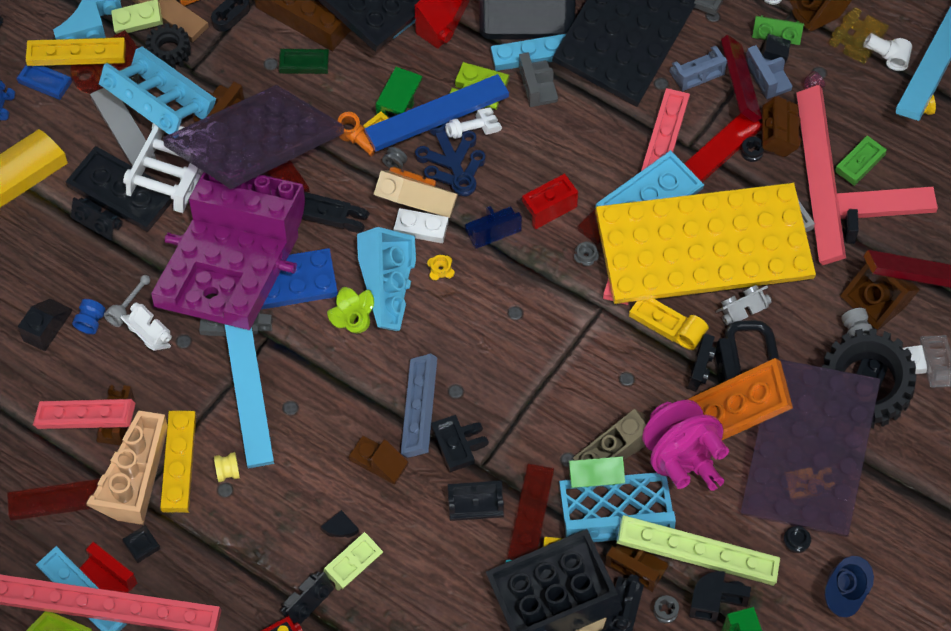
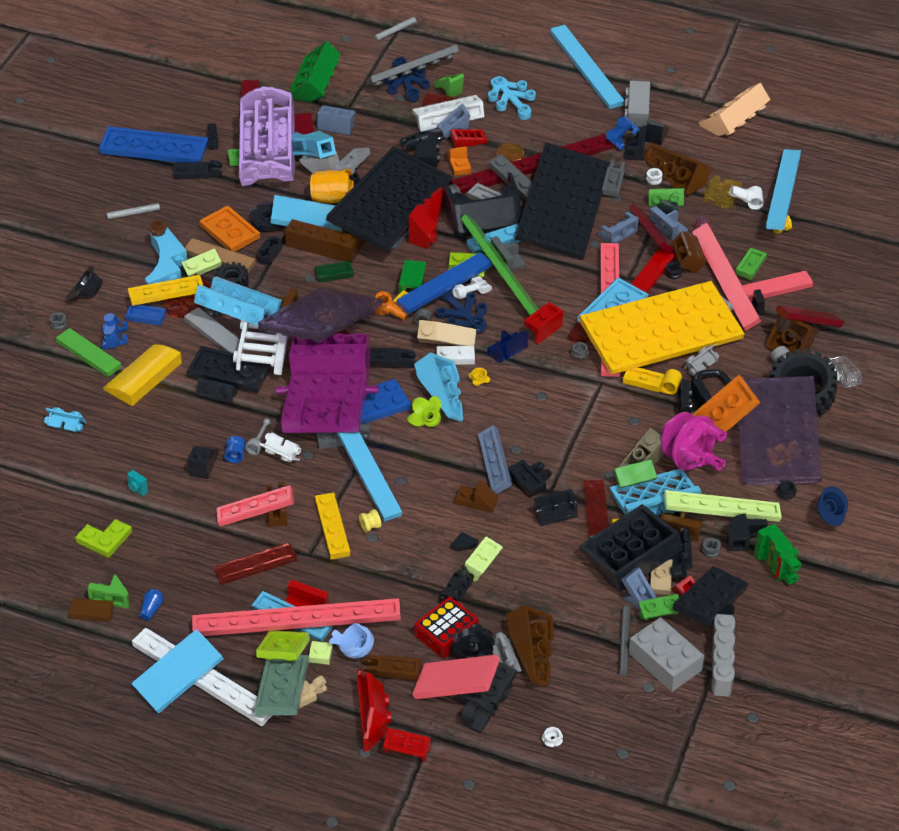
camera: 15 degrees left, 15 degrees down
(129, 480) = (303, 533): light nougat wedge -> none
(141, 544) = (323, 579): black tile -> none
(520, 100) = (499, 264): none -> bright green tile

